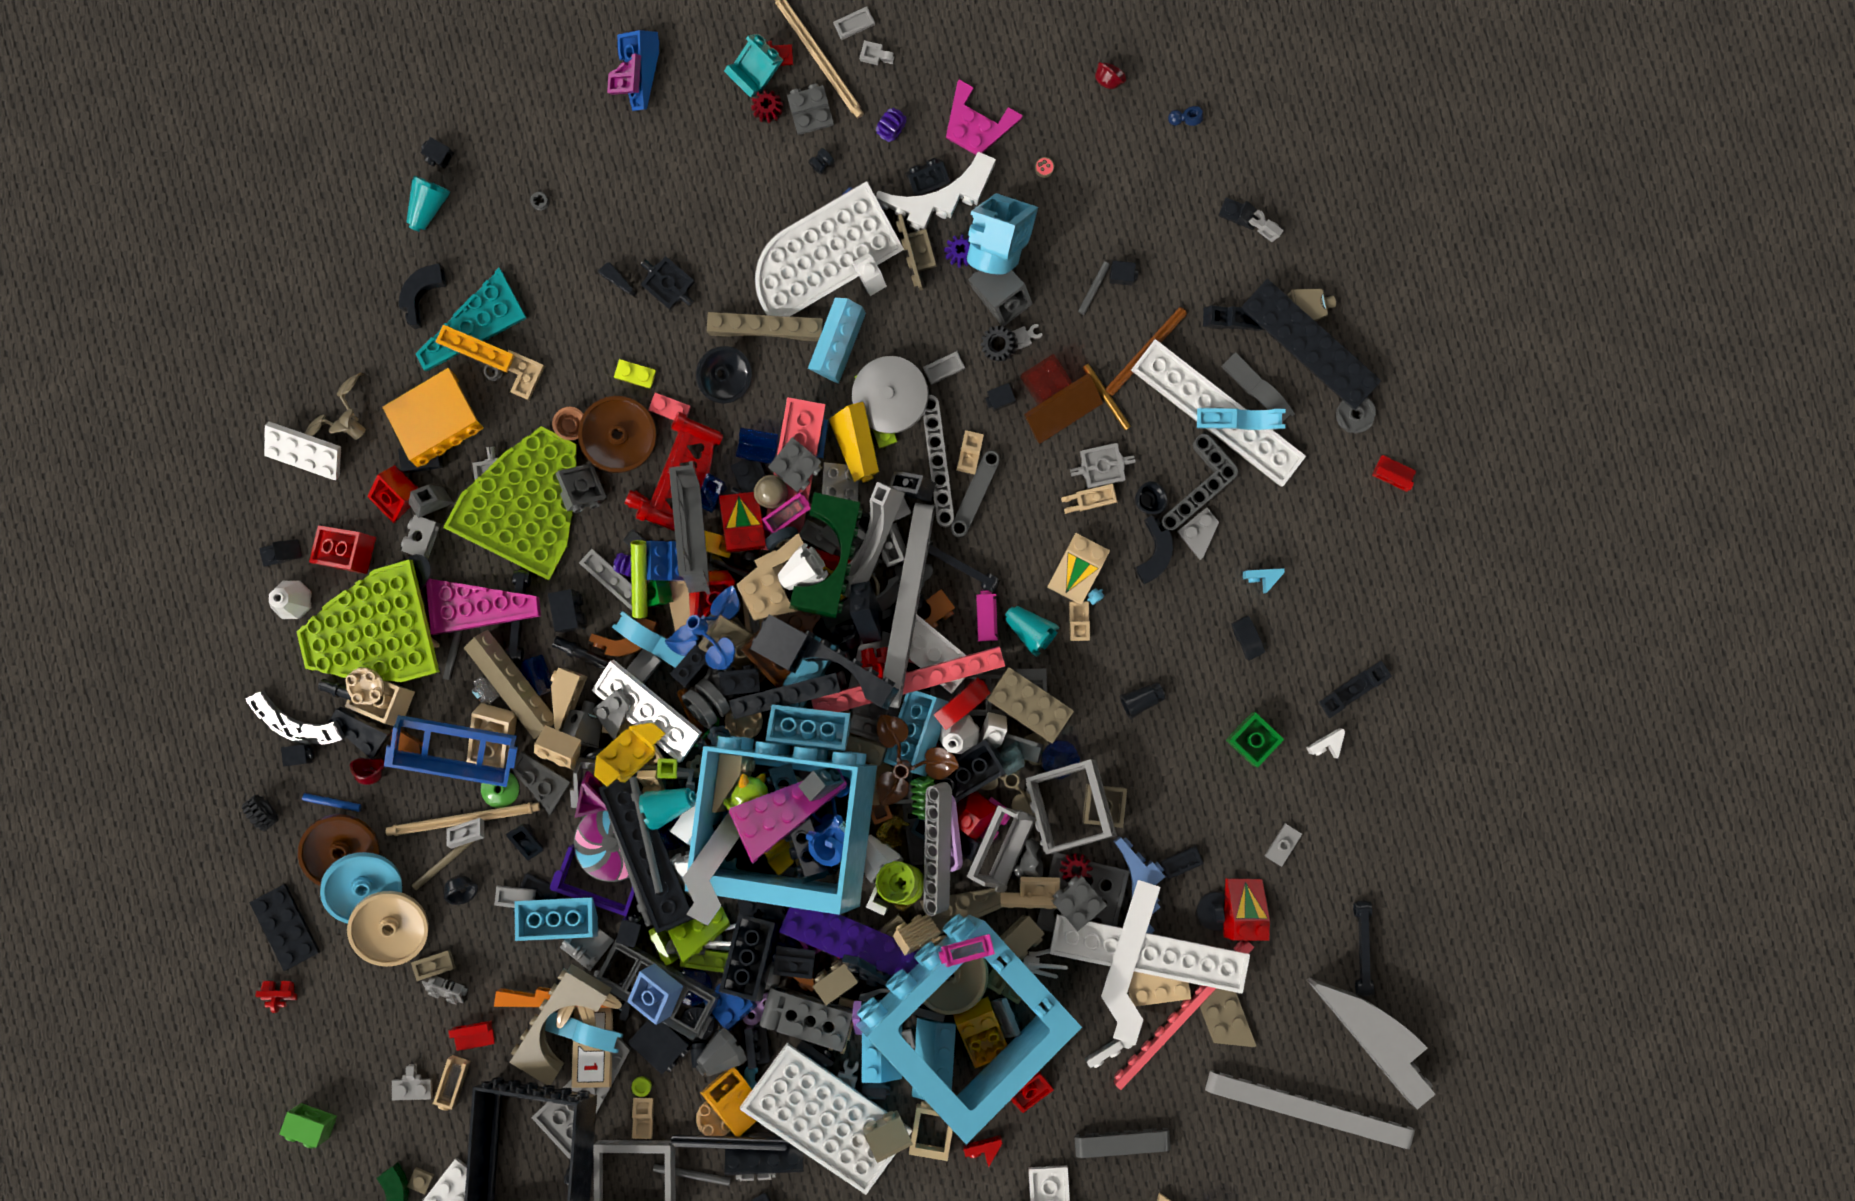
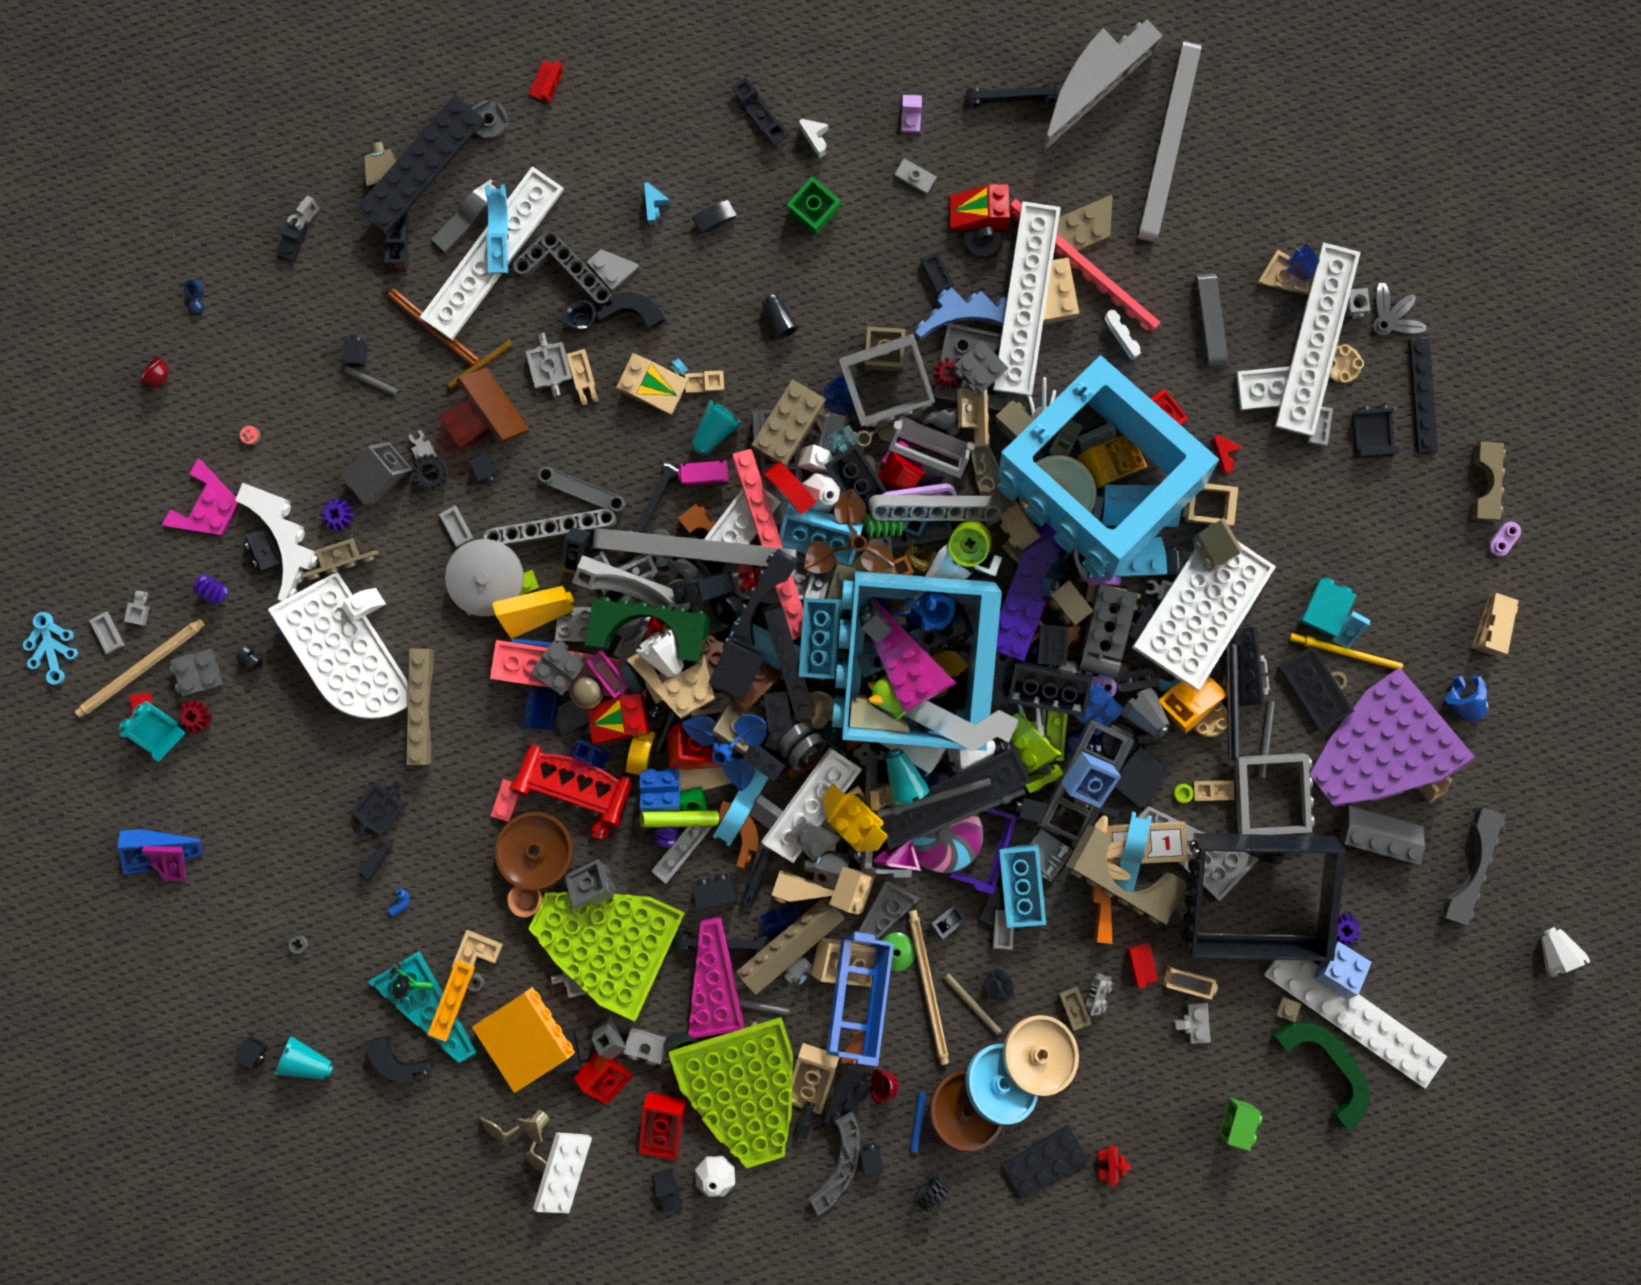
camera: 90 degrees left, 0 degrees up
(364, 686) = (798, 1092): tan dish -> none
(465, 833) = (942, 983): light grey plate -> none
(491, 301) = (402, 986): none -> black plant
(574, 303) = (402, 902): none -> blue arm
(635, 374) = (472, 837): neon yellow plate -> none
(667, 768) = (867, 780): lime slope -> none
(689, 528) = (625, 767): dark grey piece -> none
(735, 374) = (473, 736): black dish -> none
(837, 339) = (429, 633): medium azure slope -> none
(966, 950) = (1031, 466): dark pink window -> none
(970, 452) = (540, 497): tan slope -> none
(999, 233) = (318, 474): medium azure brick -> none
(1125, 960) = (1034, 321): white sticker -> none
(1348, 843) = (911, 113): none -> lavender slope

